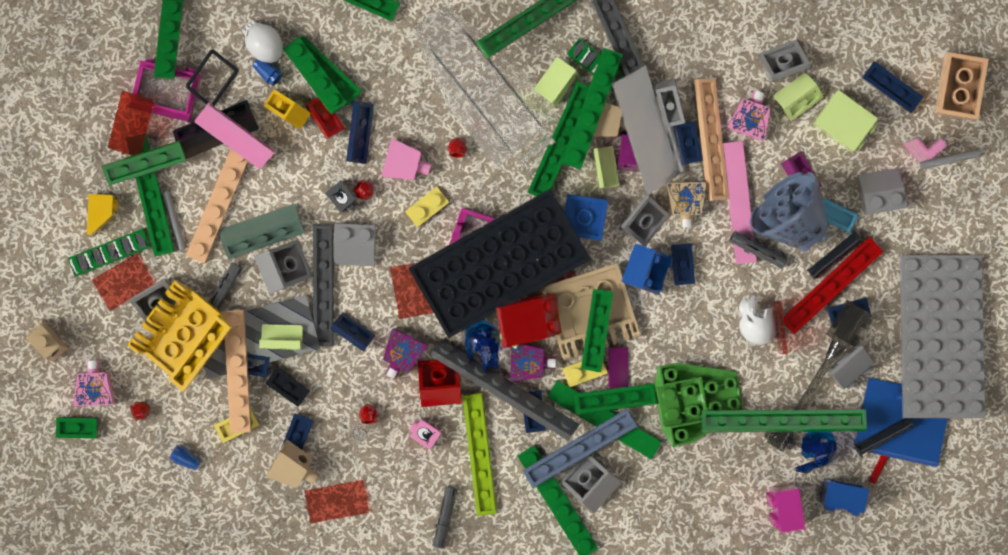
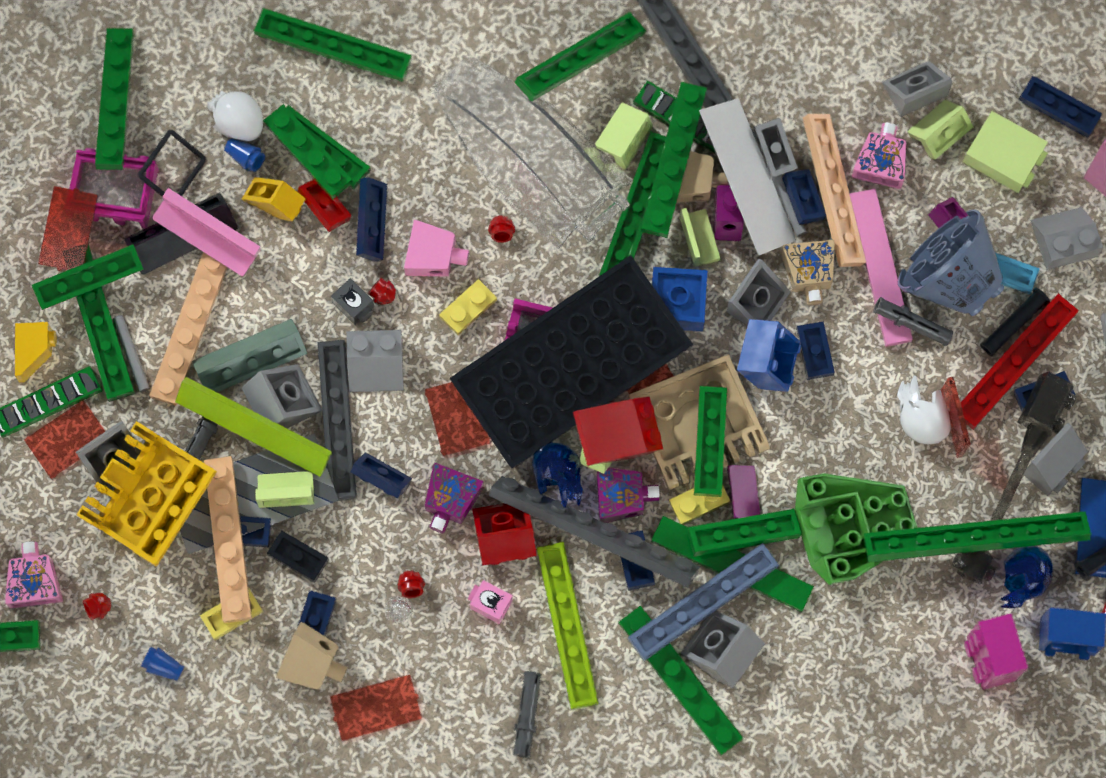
camera: 10 degrees left, 15 degrees down
(260, 289) = (253, 426): none -> lime tile

